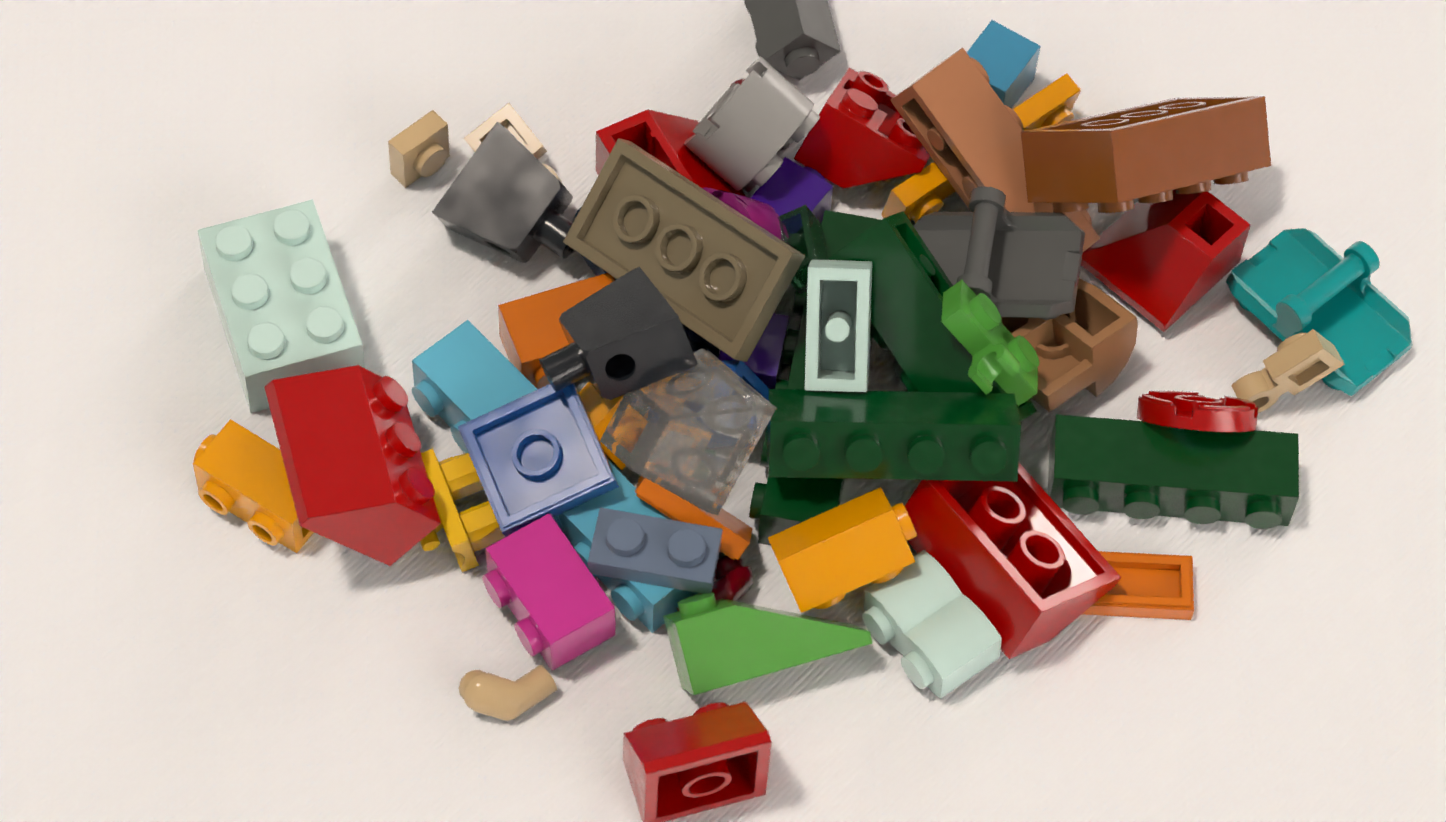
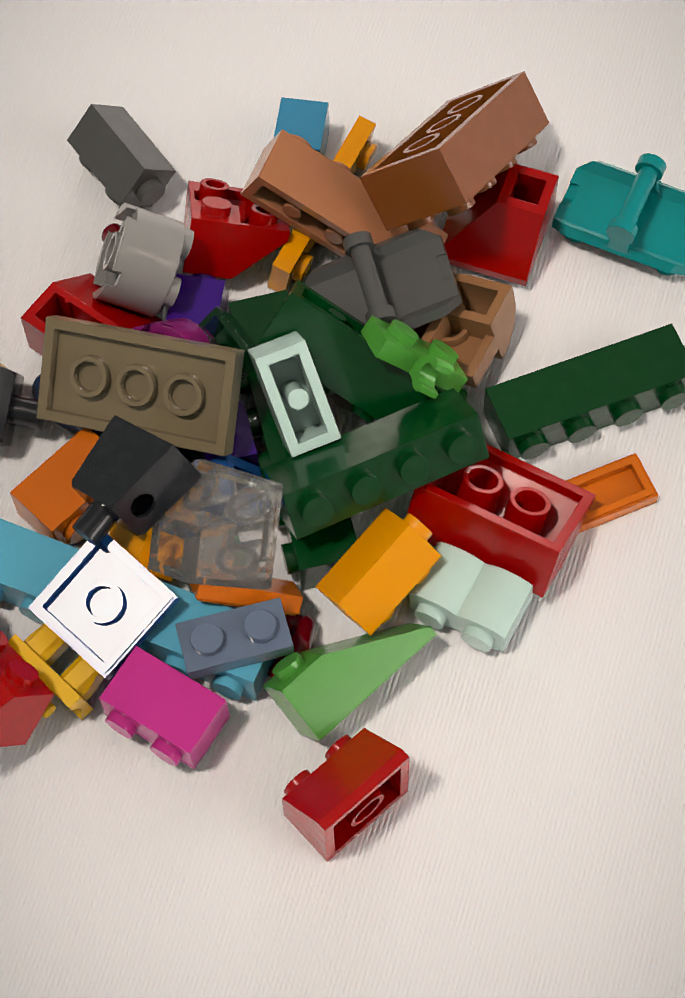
camera: 20 degrees left, 5 degrees up
(504, 697) = (169, 809): tan arm -> none
(1197, 412) = (585, 342): red tile -> none
(1294, 367) = (642, 269): tan plate -> none

